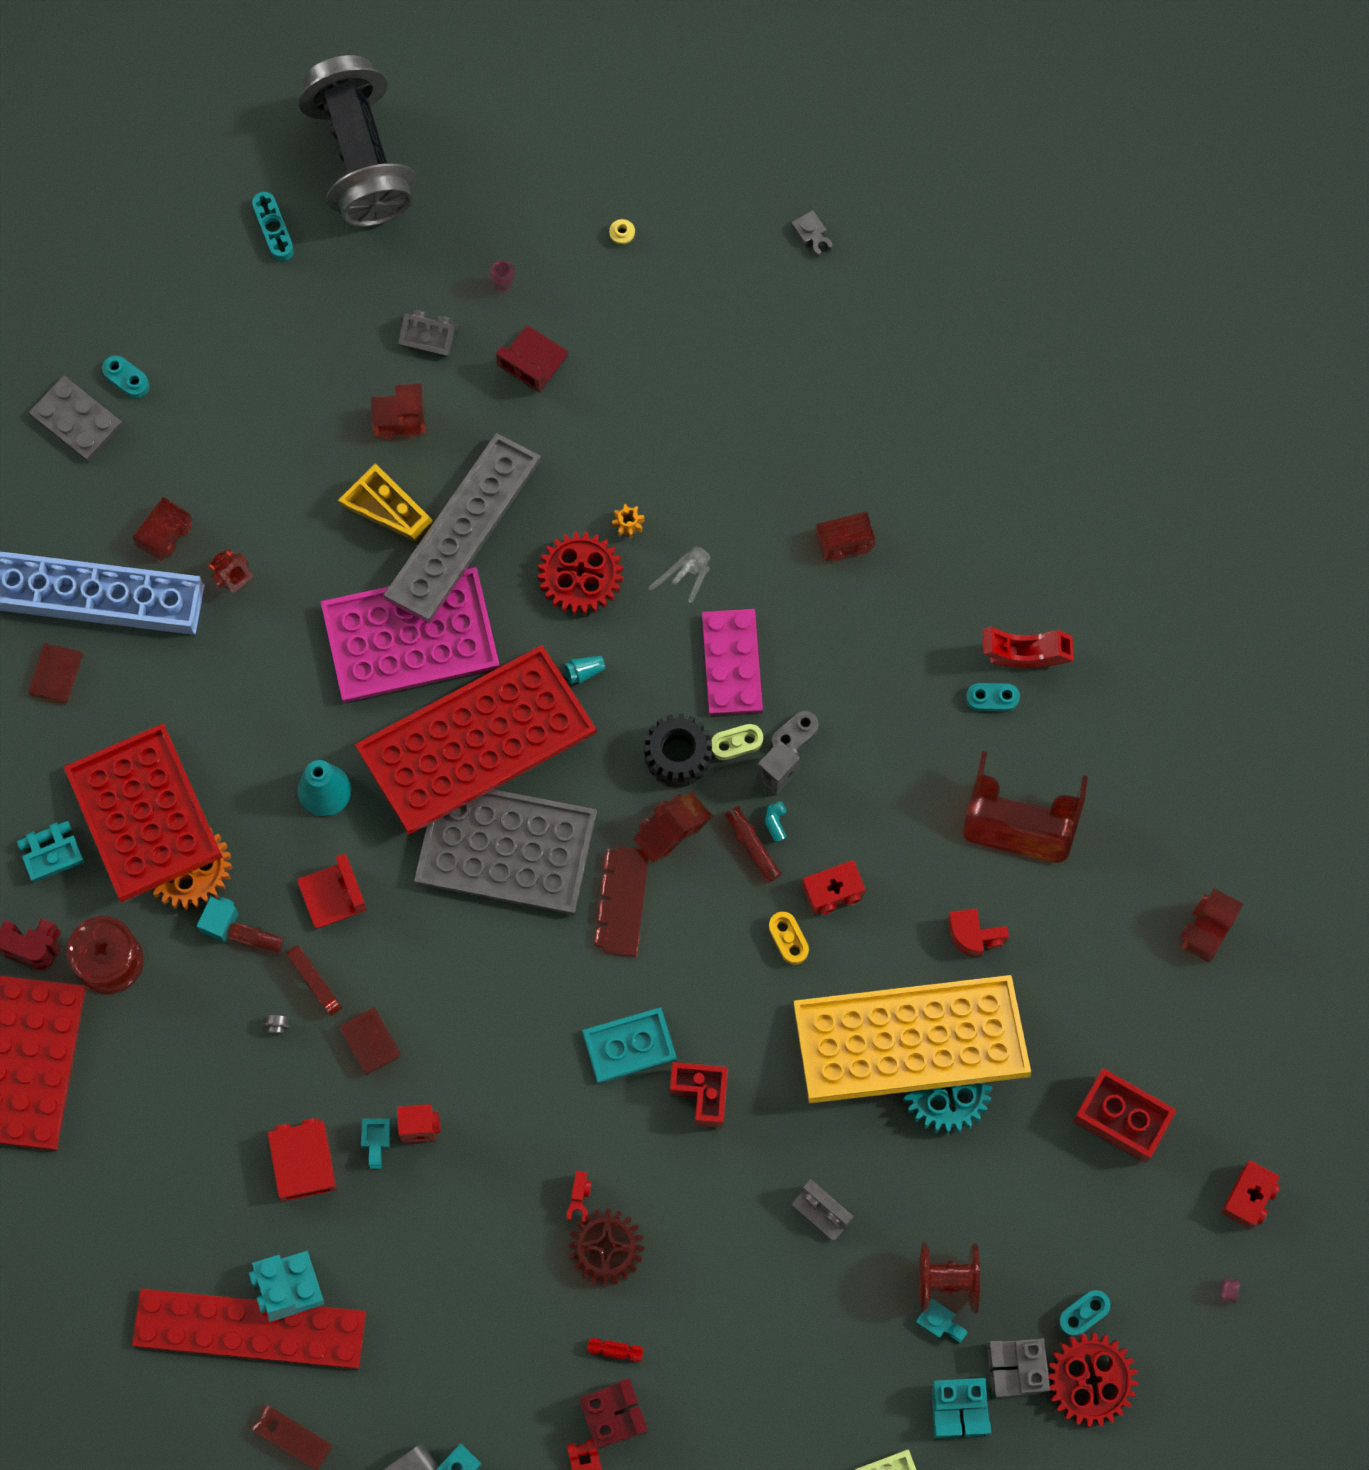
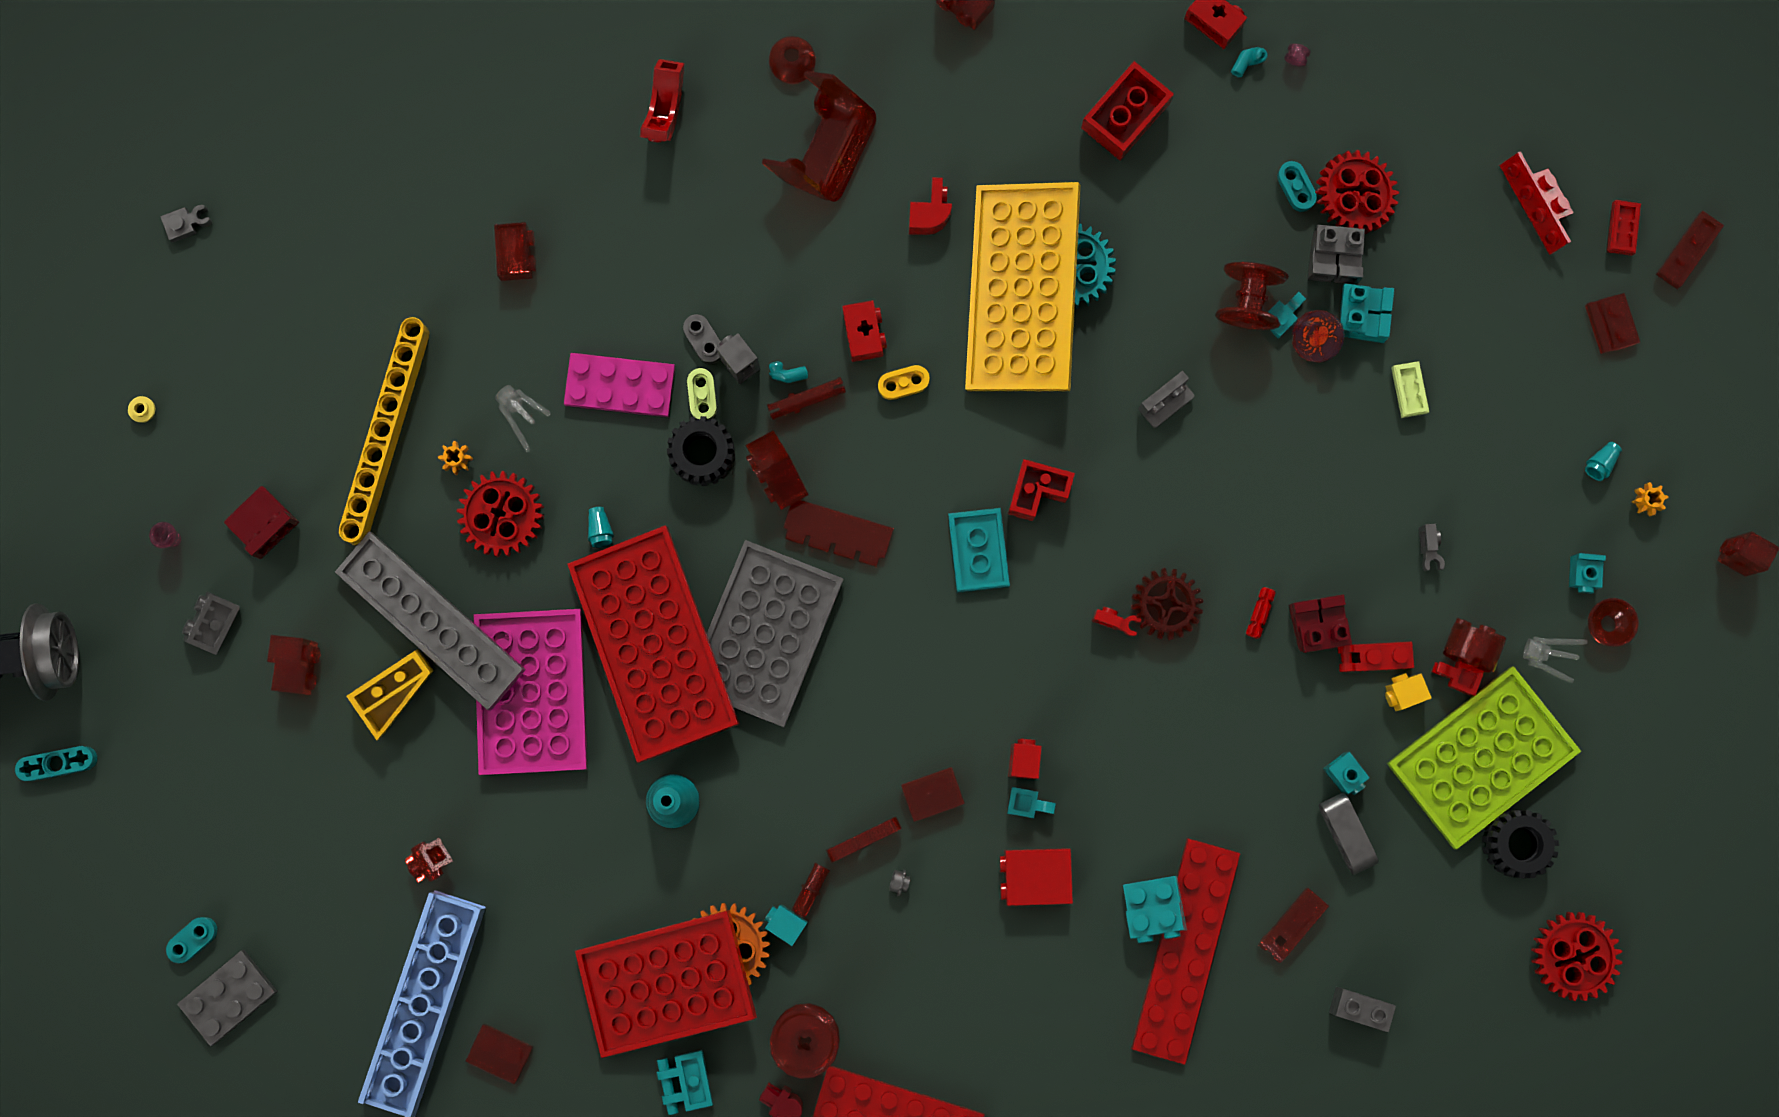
camera: 80 degrees left, 10 degrees up
(163, 529) = (368, 923): clear red brick -> none
(332, 893) = (780, 809): red bracket -> none
(653, 459) = (382, 418): none -> yellow beam
(923, 1360) = (1318, 336): none -> clear red tile
(993, 697) = (703, 146): teal plate -> none
(1102, 780) = (792, 71): none -> clear red piece
(1214, 1237) = (1248, 58): none -> teal arm

